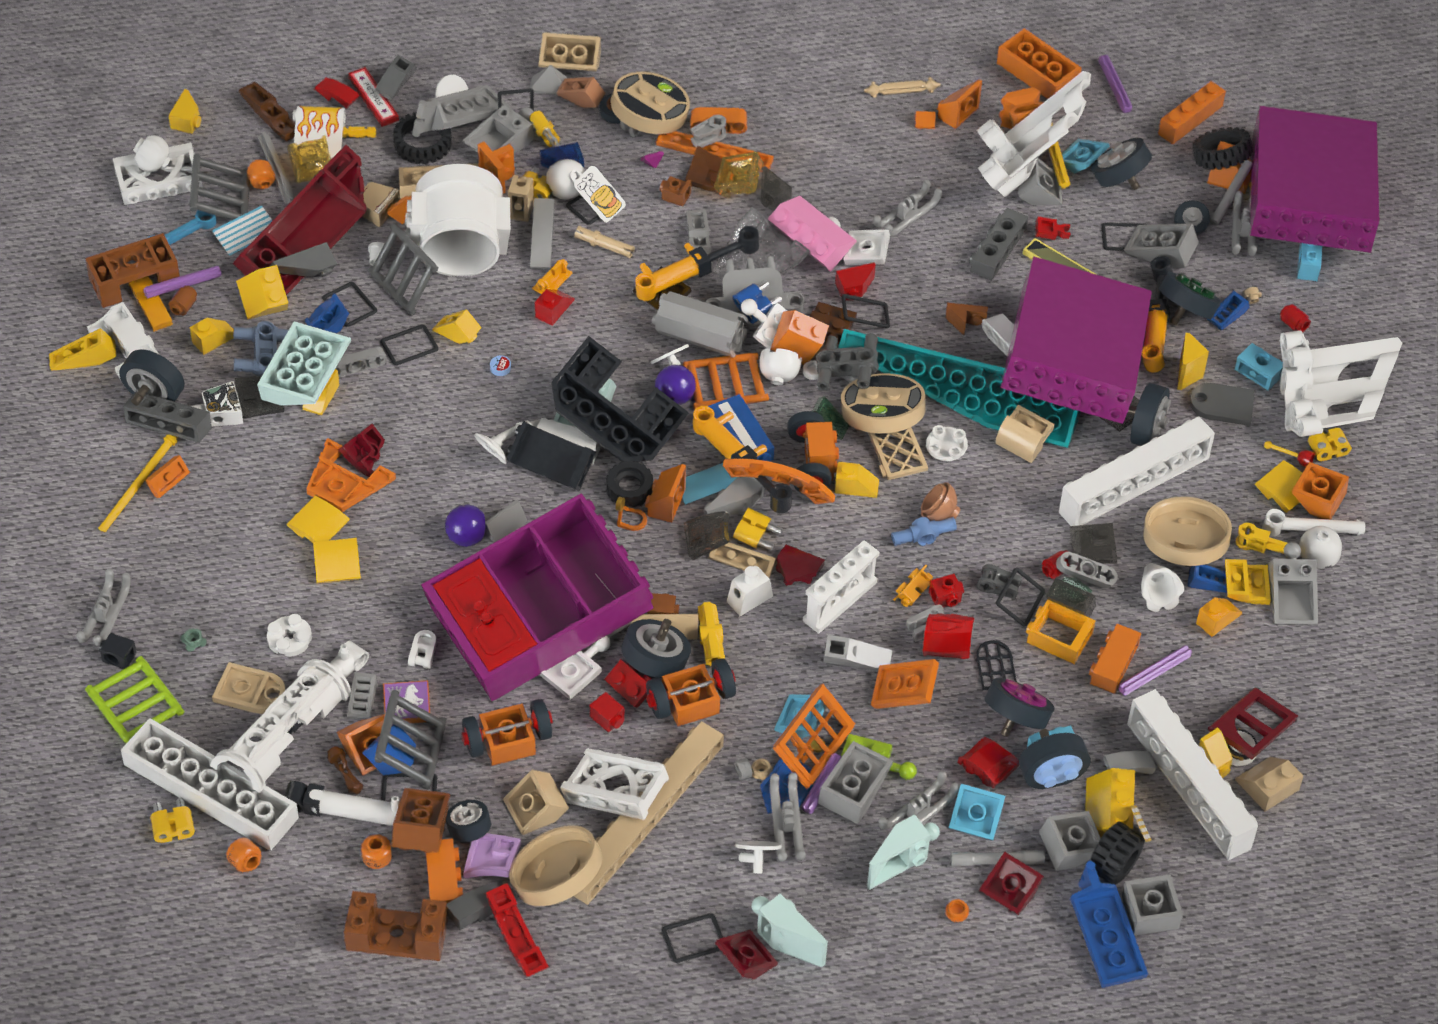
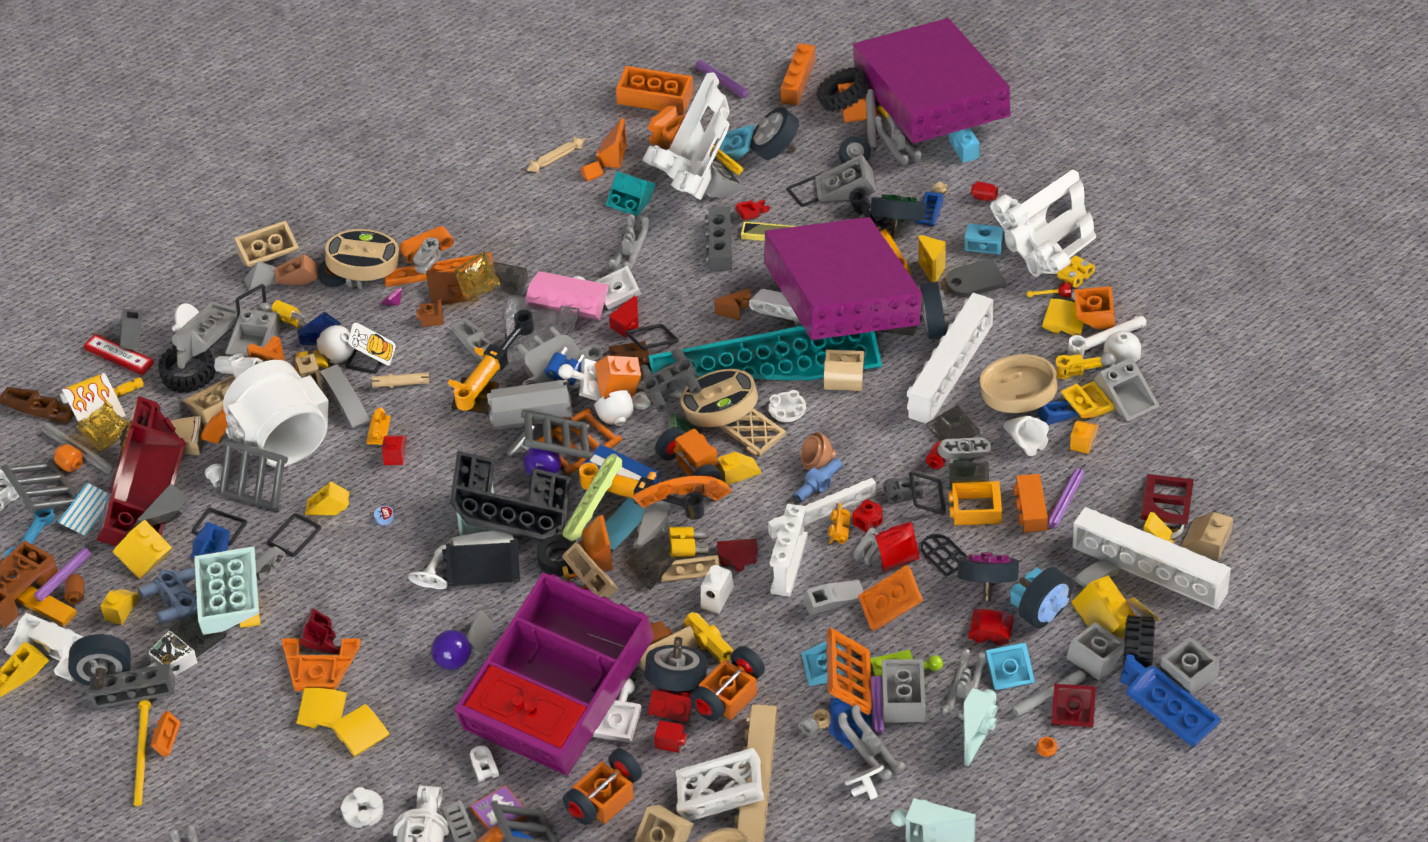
camera: 25 degrees left, 5 degrees down
(340, 92) = (82, 362): red slope -> none
(464, 154) = (235, 364): none -> white piece
(641, 516) = (589, 571): none -> tan slope
(701, 383) = (565, 425): none -> dark grey bar
(703, 433) = (592, 497): none -> yellowish green piece
(935, 561) = (824, 506): none -> white plate
(944, 158) = (629, 193): none -> teal slope

